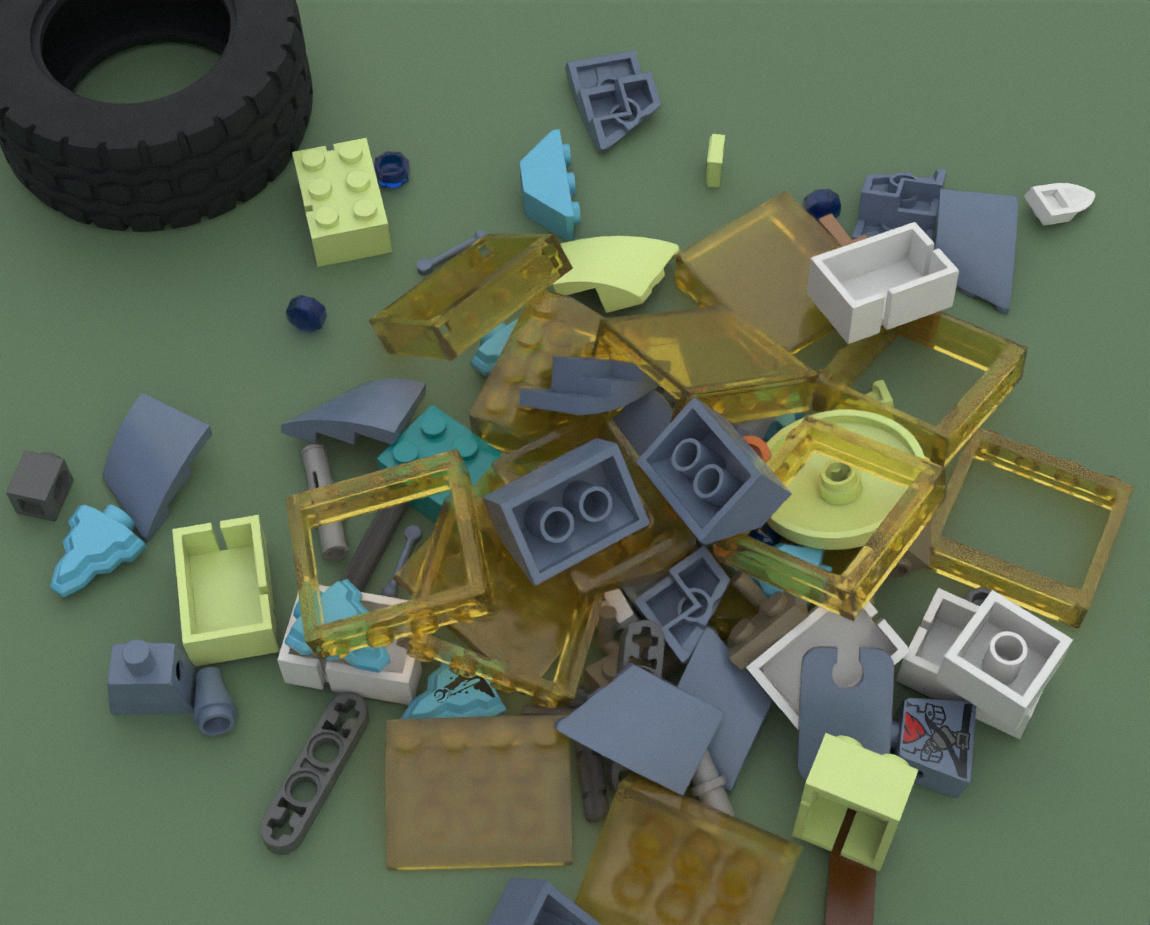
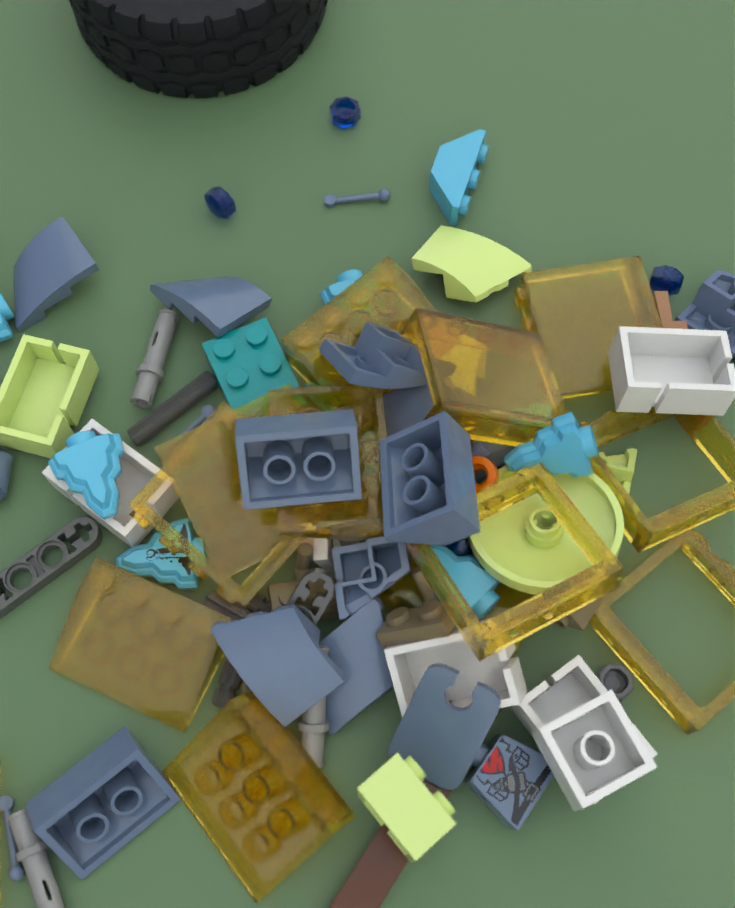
camera: 25 degrees right, 10 degrees up
(342, 202) = (291, 124): yellowish green piece -> none
(373, 493) = (174, 378): clear yellow window -> none
(470, 295) = (340, 241): clear yellow window -> none
(612, 95) = (547, 118): sand blue slope -> none
(715, 160) = (599, 206): yellowish green tile -> none
(816, 392) = (559, 447): none -> medium azure rock

